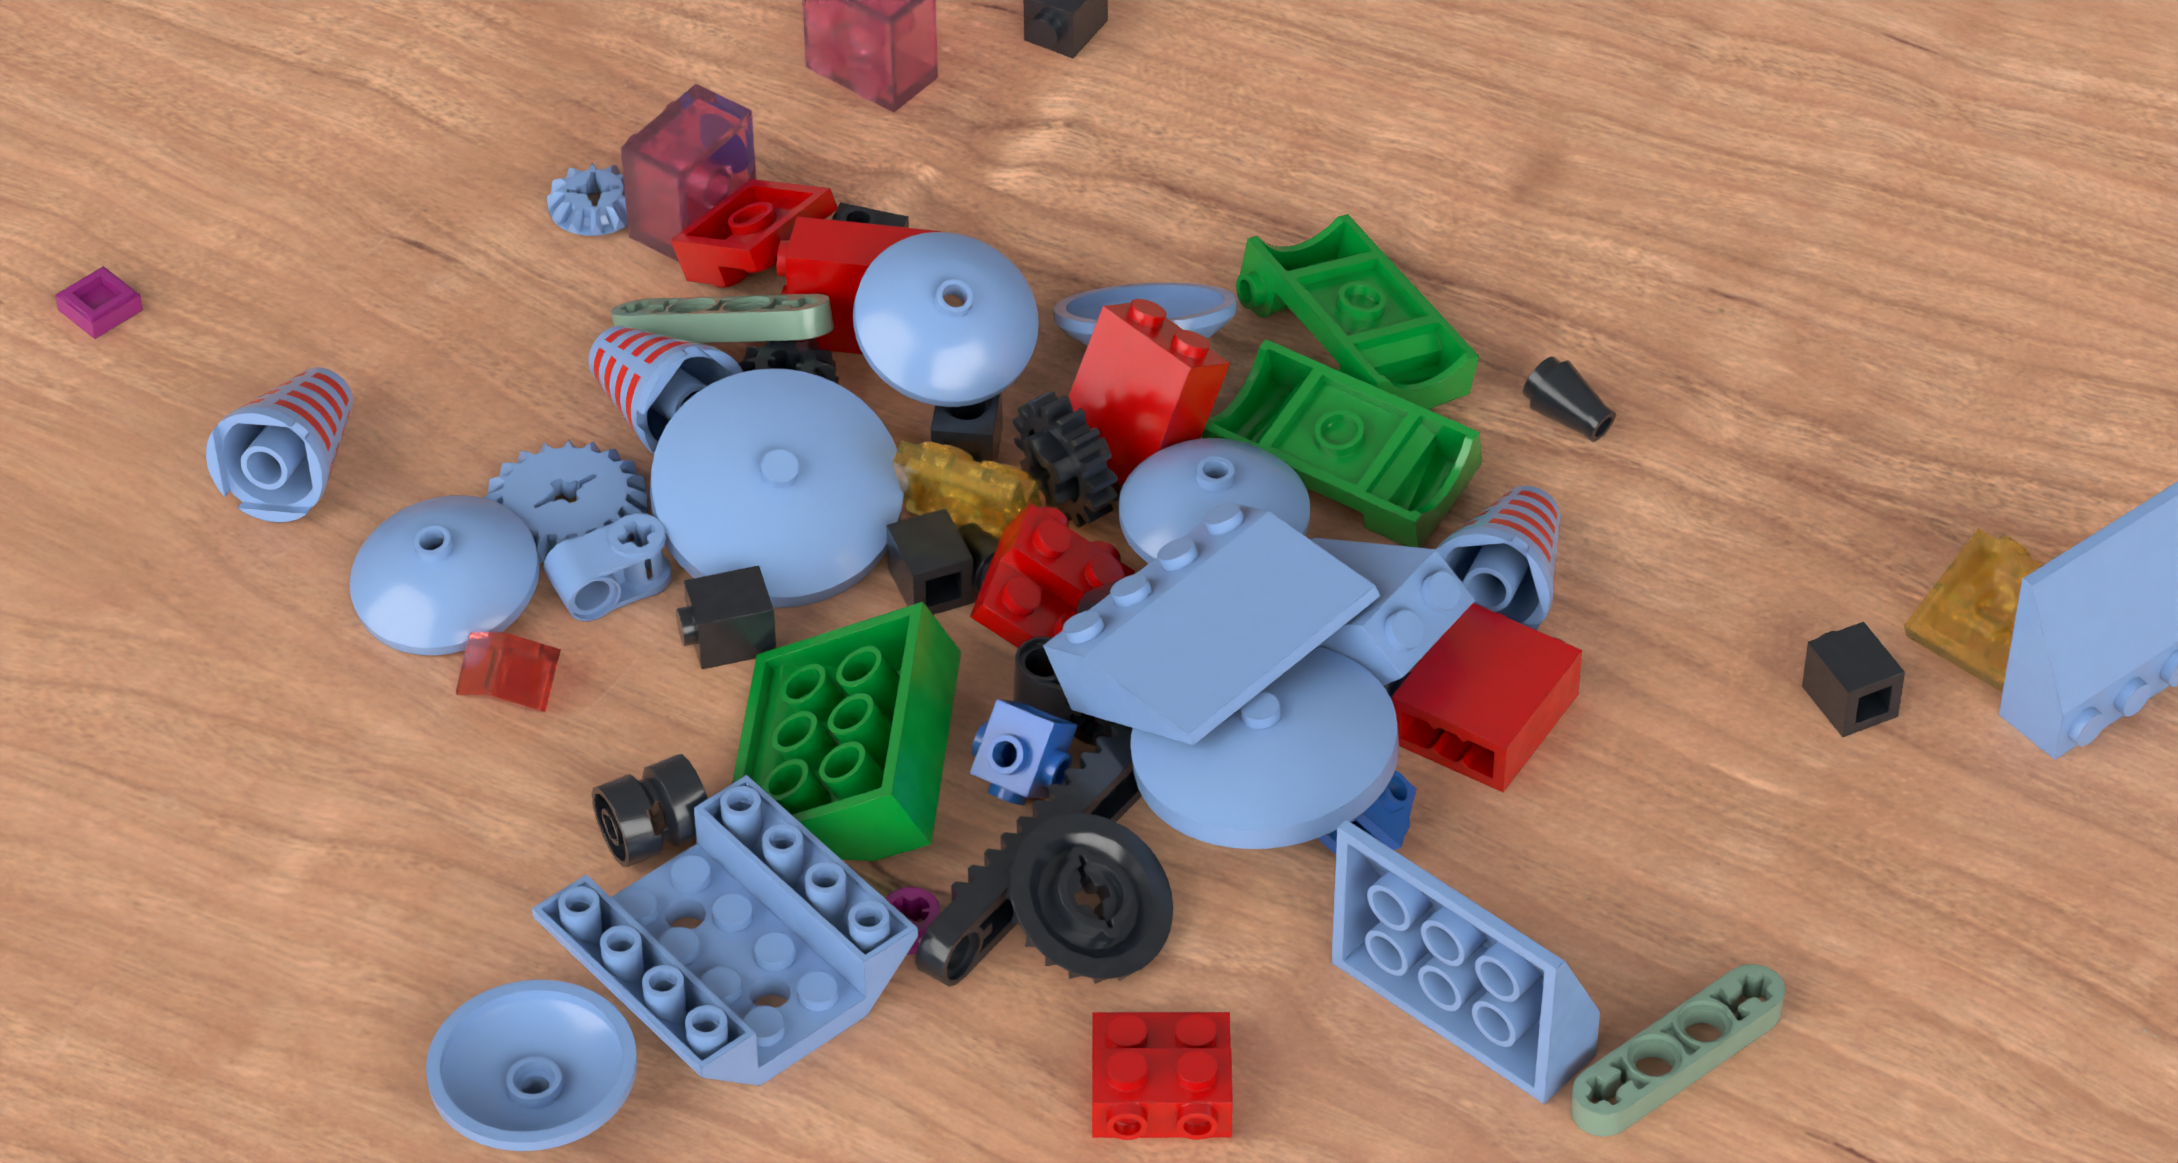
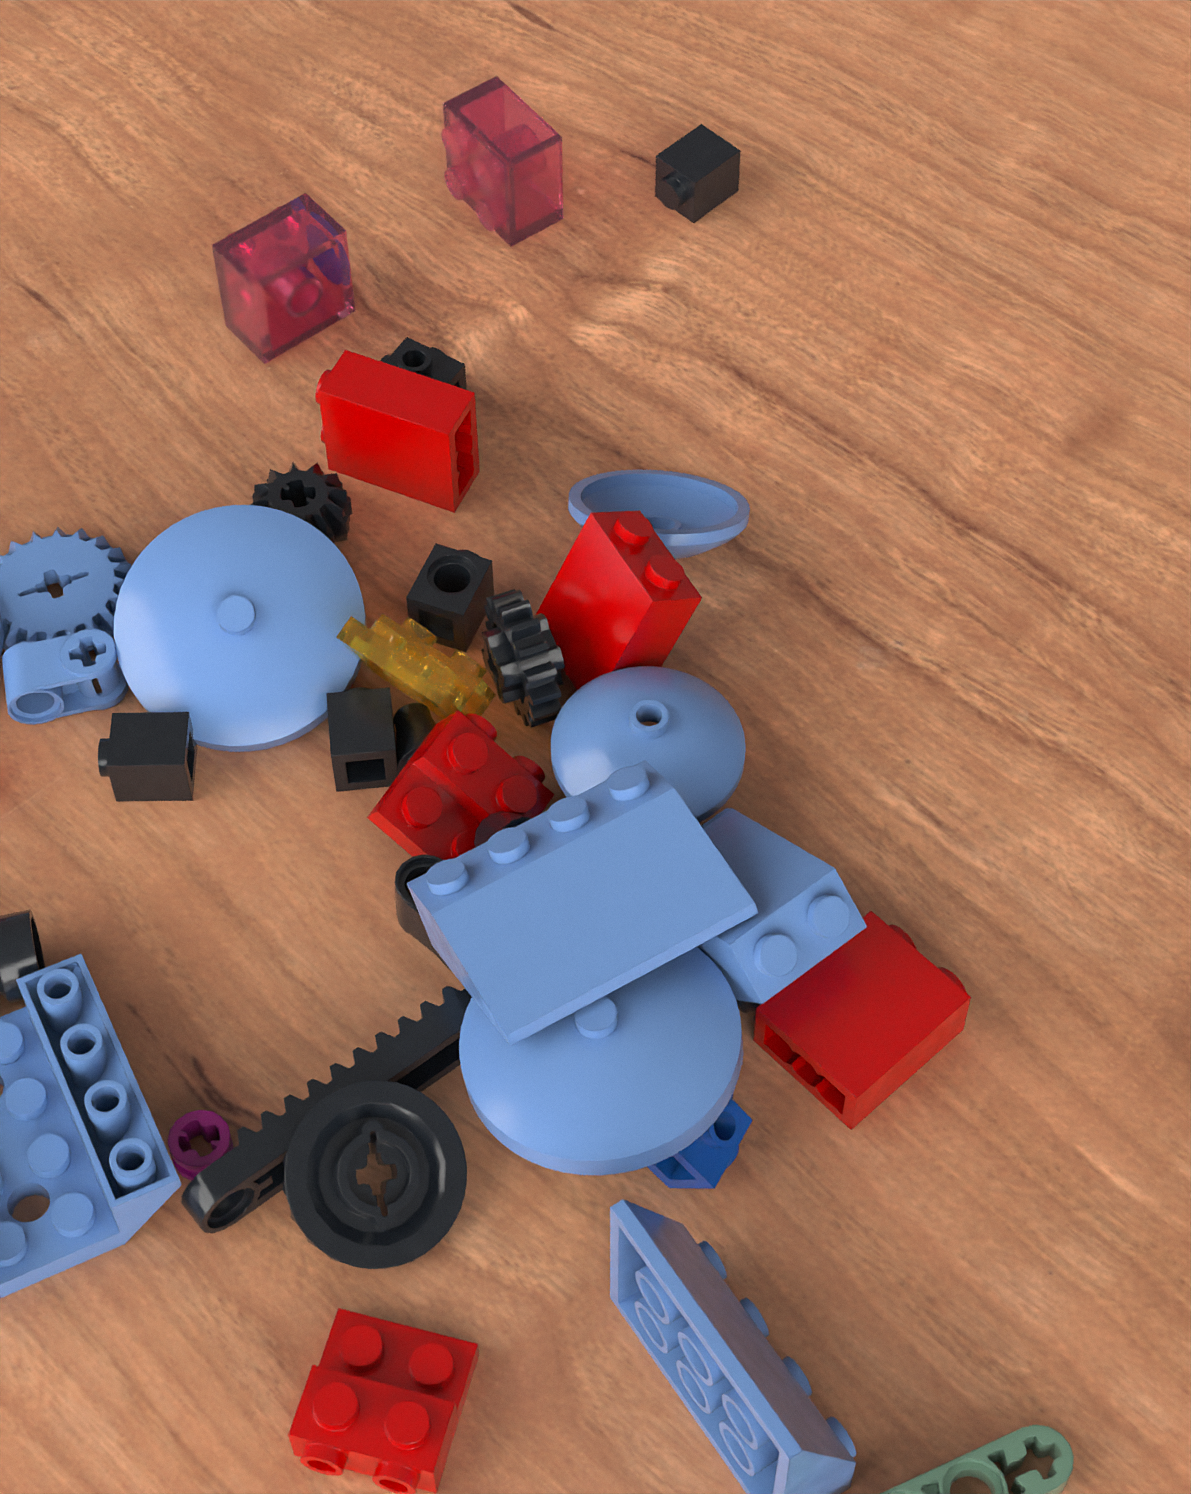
camera: 15 degrees right, 10 degrees up
(574, 212) = (181, 292): medium blue gear -> none
(653, 375) = (173, 481): medium blue cone -> none
(730, 317) = (261, 435): sand green beam -> none
(746, 230) = (300, 350): red plate -> none
(855, 731) = (215, 923): green slope -> none
(938, 349) = (442, 524): medium blue dish -> none
(1022, 751) = (370, 979): brick -> none
(1353, 442) = (811, 697): green piece -> none
(1360, 312) = (870, 560): green piece -> none
(1509, 555) = (925, 865): medium blue cone -> none
(1567, 398) = (1049, 687): black cone -> none

